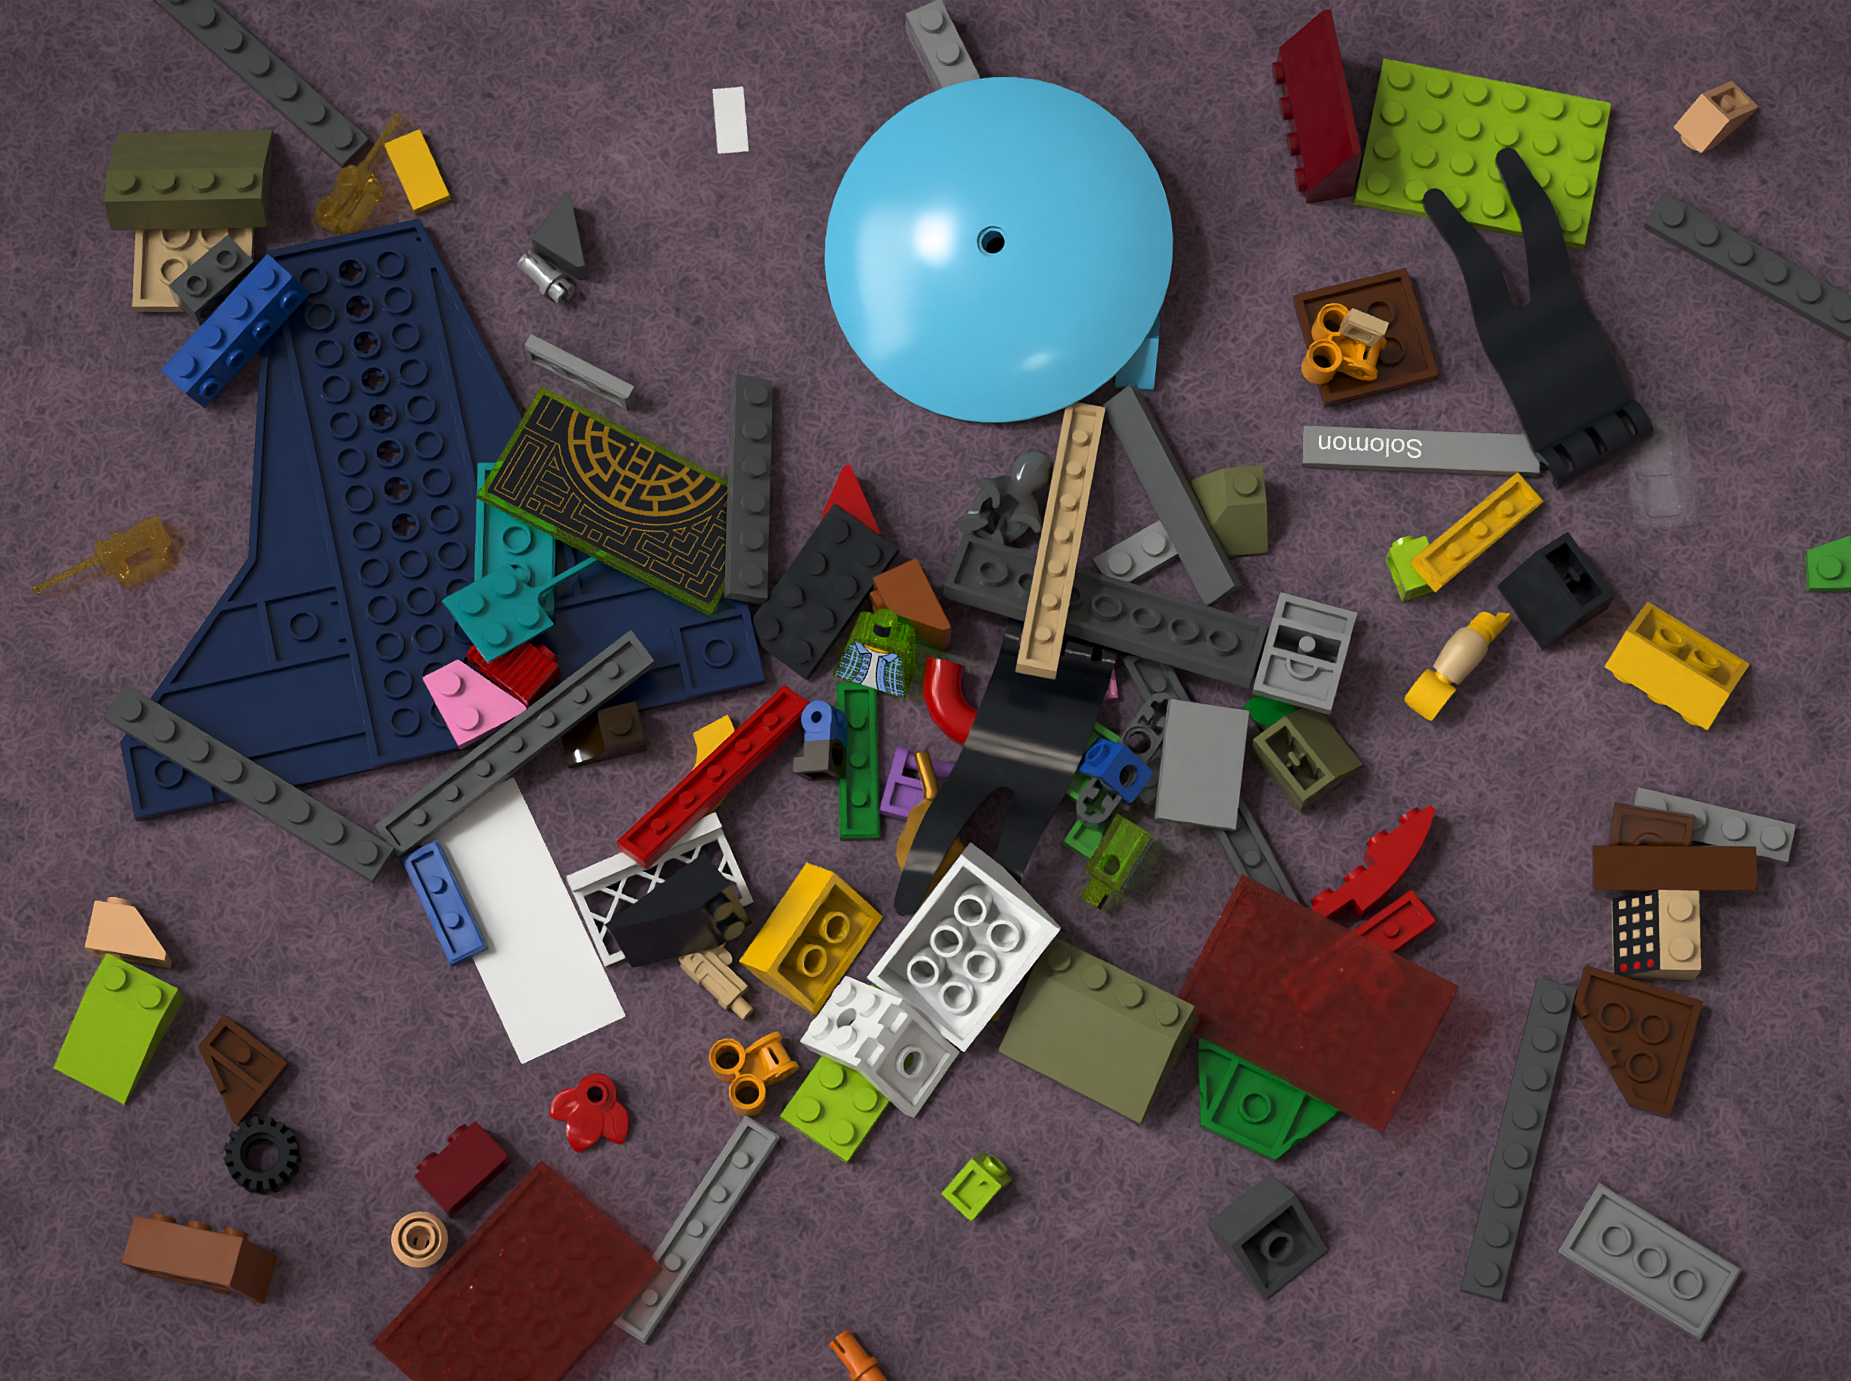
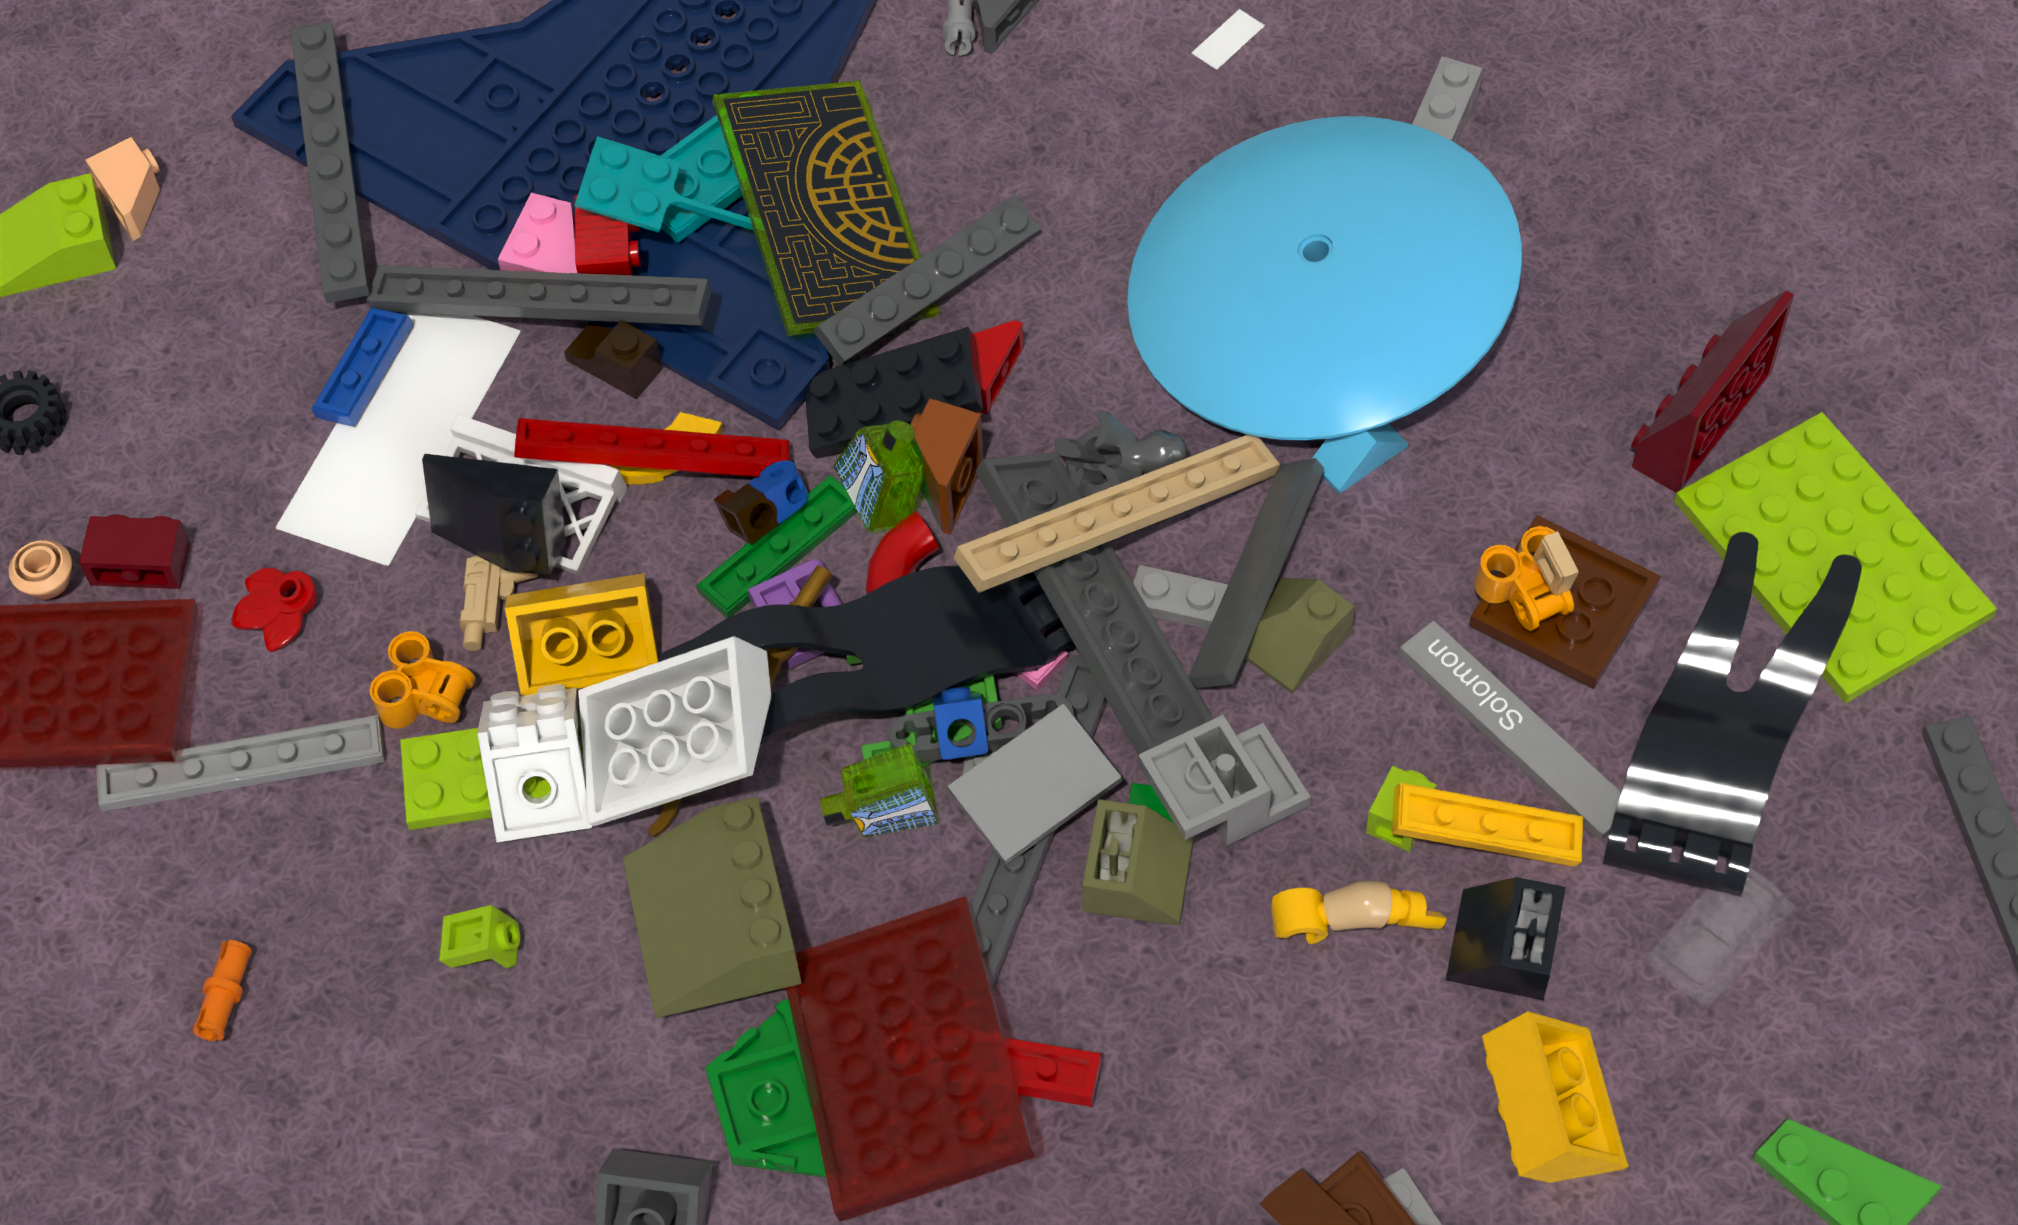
camera: 50 degrees right, 15 degrees down
(240, 1067) = (87, 341): reddish brown wing -> none
(580, 372) = (903, 102): light grey tile -> none
(1388, 862) = (1112, 1018): red slope -> none

